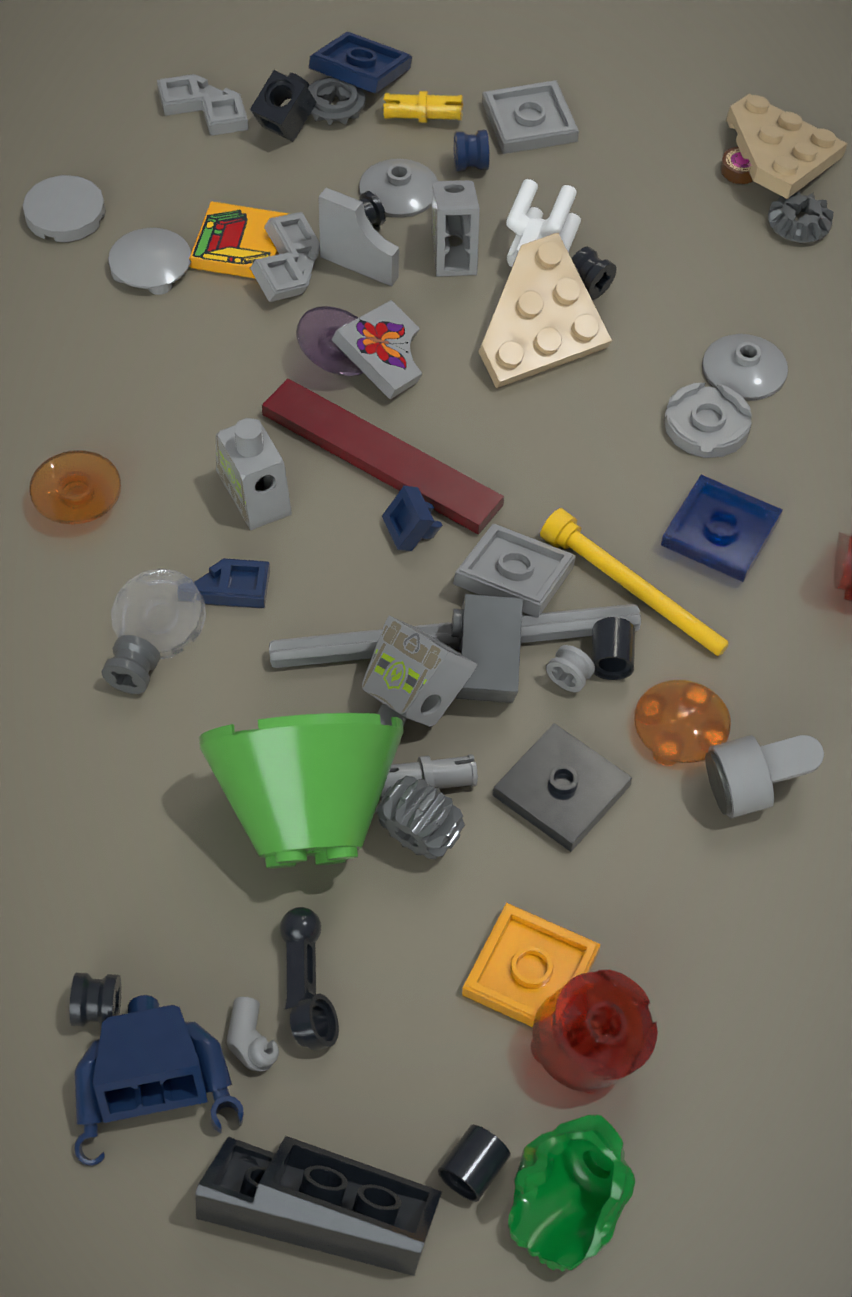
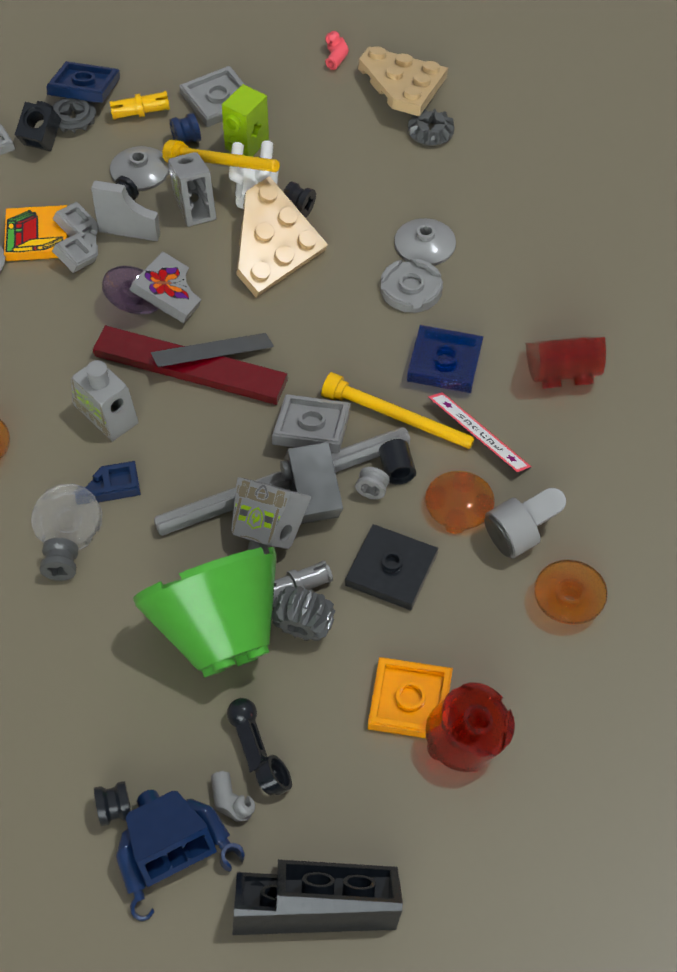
camera: 15 degrees left, 0 degrees up
(410, 519) = (226, 405): dark blue tile -> none
(415, 442) = (211, 349): none -> dark grey sticker
(454, 171) = (175, 148): none -> yellow piece
(474, 1163) = (414, 840): black beam -> none
(551, 153) = (245, 119): none -> lime brick
(570, 1192) = (487, 841): green hair -> none
(706, 87) = (337, 48): none -> coral arm
(735, 167) = (375, 102): reddish brown tile -> none
(739, 637) = (479, 432): none -> sticker
(798, 866) = (575, 580): none -> clear orange dish

